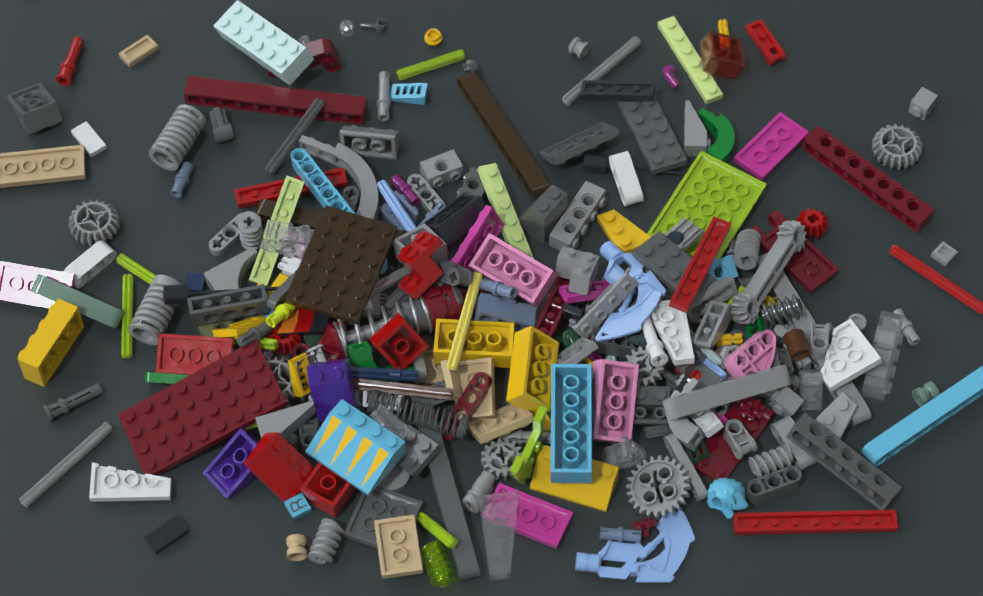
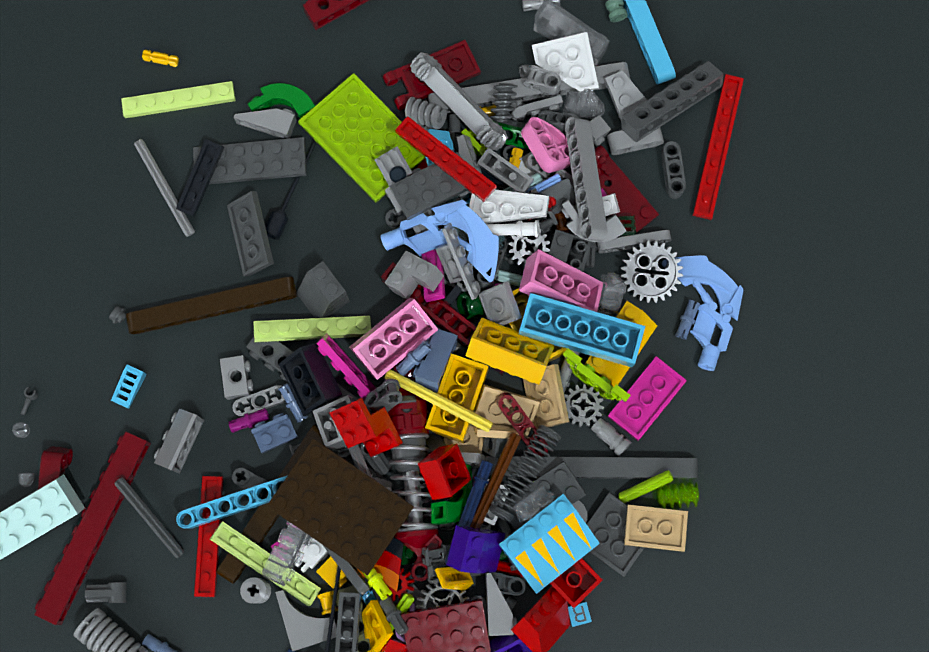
camera: 75 degrees left, 20 degrees up
(227, 242) = (232, 602): light grey beam -> none
(296, 547) = (626, 625): tan wheel -> none
(325, 542) = (629, 595): light grey piece -> none
(354, 166) = (213, 460): light grey arch -> none
(384, 102) = (118, 411): light grey pin -> none
(396, 206) = (273, 433): light blue axle -> none
(430, 64) = (99, 355): lime axle -> none
(433, 37) = (65, 343): yellow plate -> none
(498, 525) = (662, 428): clear wedge -> none
(578, 47) = (130, 201): light grey wheel -> none
(587, 194) = (351, 284): light grey brick -> none
(621, 231) = (365, 223): yellow wing -> none
(626, 178) = (305, 201): white beam -> none
(644, 525) = (684, 295): dark red plant -> none
(668, 72) = (186, 124): magenta arm -> none
(722, 54) = (190, 66): clear red brick -> none
(727, 496) = (677, 213): medium azure animal -> none
(739, 442) = (627, 184): light grey piece -> none
(765, 42) = (183, 22): red plate -> none
(771, 146) = (307, 56): dark pink plate -> none
(771, 460) = (650, 164): light grey piece -> none
(797, 344) = (545, 101): reddish brown piece -> none
(815, 222) = (404, 40): red gear -> none
(859, 320) = (523, 44): light grey tile -> none

